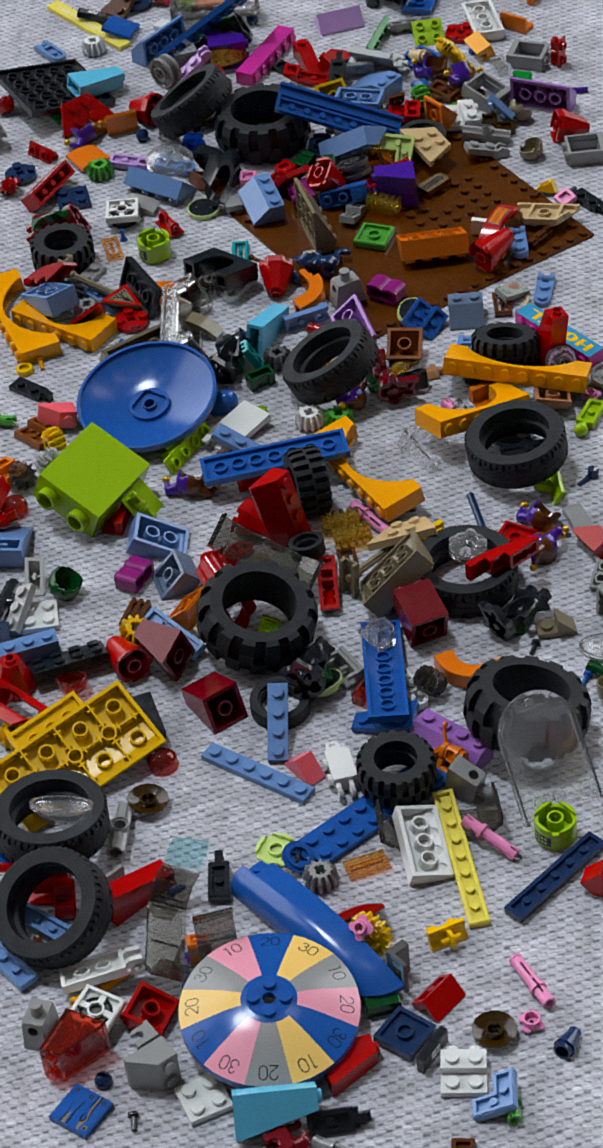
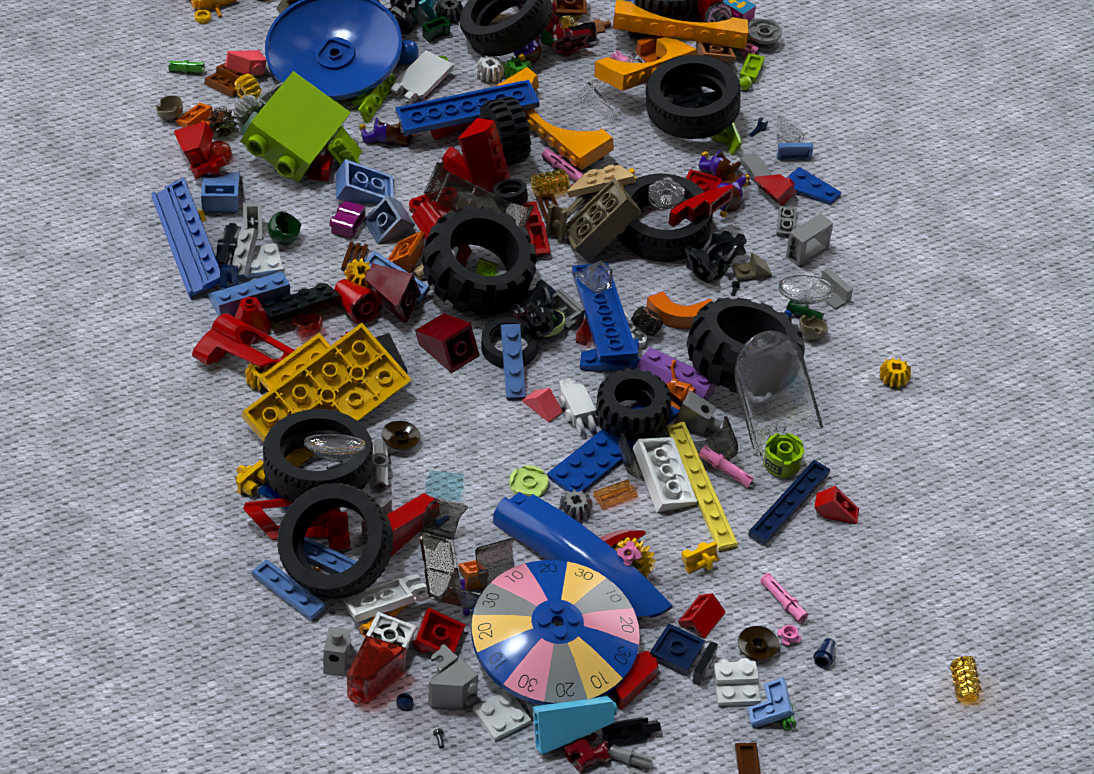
camera: 15 degrees left, 5 degrees up
(31, 390) = (213, 37): black hinge -> none
(81, 1111) = (388, 731): blue tile -> none
(162, 762) = (407, 400): clear red hair -> none
(218, 878) = (480, 510): black hinge -> none
(231, 438) = (421, 88): medium blue plate -> none
(258, 773) = (499, 409): medium blue plate -> none
(290, 850) = (557, 485): blue gear -> none
(341, 518) = (536, 166): clear yellow piece -> none
(381, 1006) = (650, 625): dark green piece -> none
(399, 962) = (664, 583): dark grey panel -> none
(420, 612) = (630, 256): dark red slope -> none
(475, 509) = (659, 158): dark blue bar -> none

